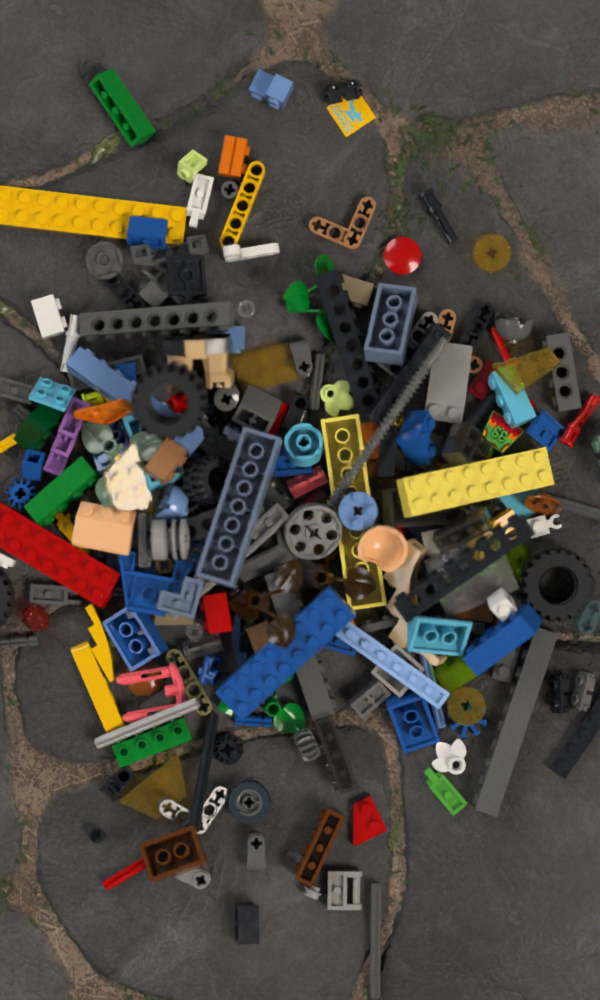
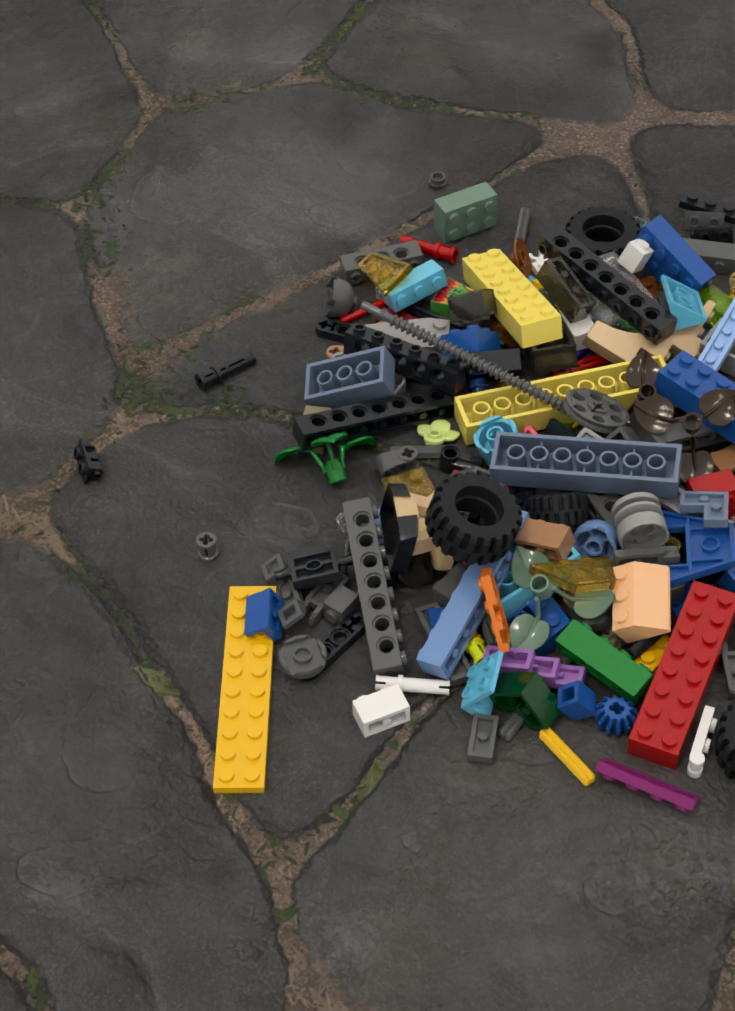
camera: 90 degrees left, 40 degrees down
(122, 107) = (107, 658): green brick -> none
(191, 165) = (180, 585): yellowish green bracket -> none
(199, 198) = (218, 575): white hinge -> none
(233, 157) = (166, 548): orange brick -> none
(235, 253) = (280, 517): white beam -> none
(242, 196) = (230, 533): yellow beam -> none
(271, 89) = (86, 514): medium blue brick -> none
(346, 233) = (252, 439): medium nougat beam -> none
(351, 114) = (114, 456): yellow sticker -> none
(368, 511) = (563, 373): medium blue brick -> none
(384, 547) = (598, 347): light nougat cylinder -> none
(402, 255) = (271, 396): red dish -> none
(501, 258) = (253, 324): clear yellow plate -> none
(545, 430) = (449, 268): blue plate -> none

